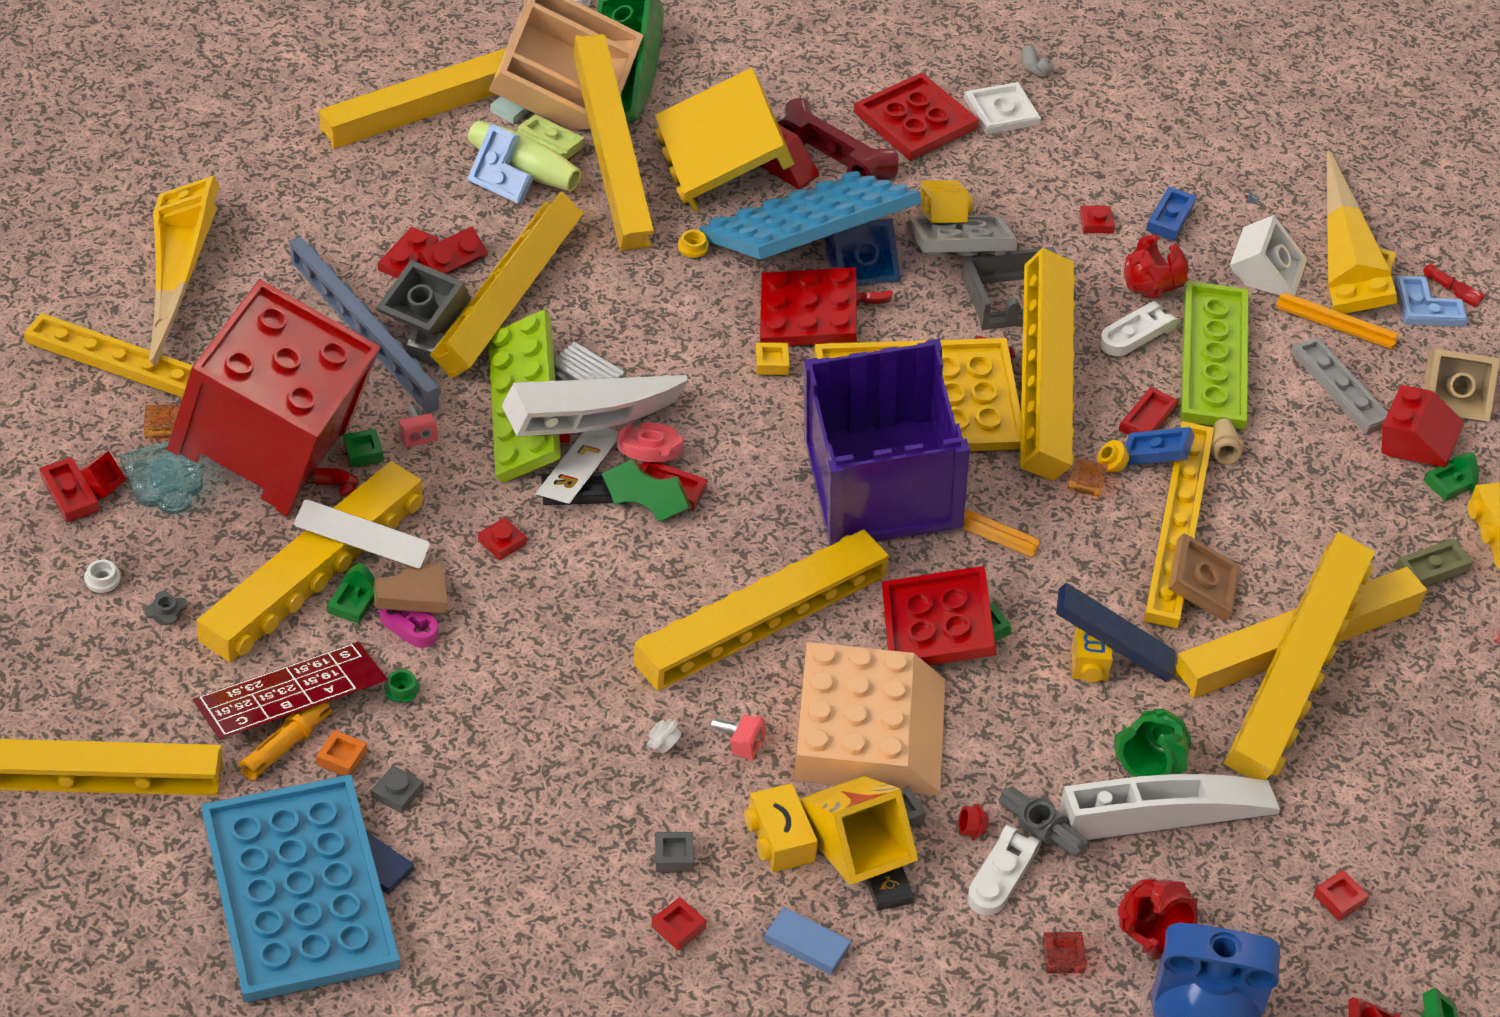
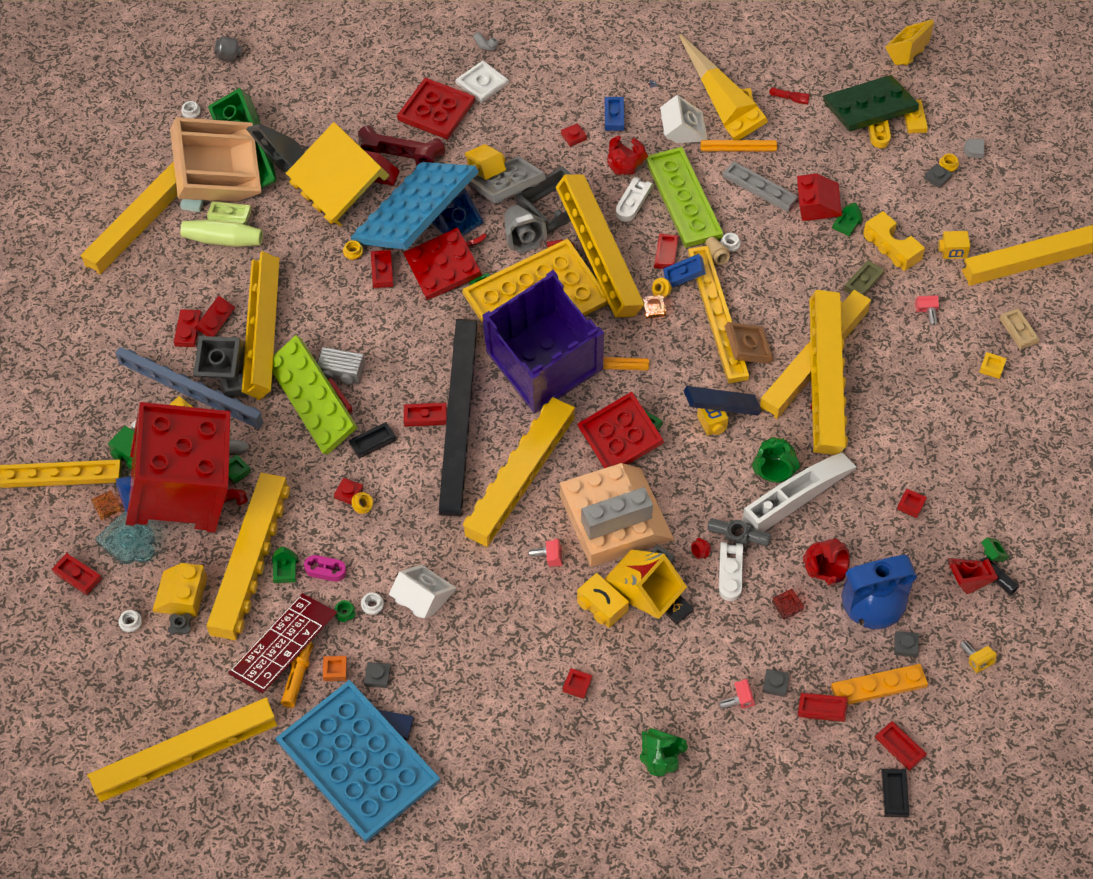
camera: 20 degrees left, 10 degrees up
(103, 475) = (93, 556): red plate -> none
(180, 229) = (42, 370): yellow plate -> none
(196, 566) = (181, 590): none -> yellow slope
(362, 533) = (270, 527): white sticker -> none
(378, 419) = (237, 447): none -> light grey arm
(413, 590) = (319, 547): medium nougat tile -> none
(418, 428) = (261, 441): coral piece -> none
(444, 685) = (372, 597): none -> white plate
(492, 166) = (206, 249): light blue tile -> none
(519, 555) = (367, 502): none -> yellow plate
(524, 704) = (421, 591): none -> white slope
(578, 465) = (367, 422): white sticker -> none
(588, 403) = (354, 387): white slope -> none
(612, 142) = (273, 203): yellow tile -> none
(632, 484) = (427, 425): green tile -> none
(650, 442) = (400, 392): coral tile -> none
(661, 75) = (279, 147): none -> dark grey slope
(664, 735) = (508, 574): white plate -> none
(674, 852) = (551, 641): dark grey plate -> none
(708, 511) = (458, 418): none -> black beam
(719, 281) = (381, 269): none -> red plate
(772, 359) = (439, 307): yellow plate -> none
(807, 941) = (650, 660): medium blue tile -> none
(863, 709) = (616, 513): none -> light grey brick
(949, 302) = (523, 227): none -> light grey cone
(1254, 438) = (731, 238): none -> white plate
(1422, 309) = (781, 118): light blue tile -> none
(1463, 381) = (825, 157): tan slope -> none

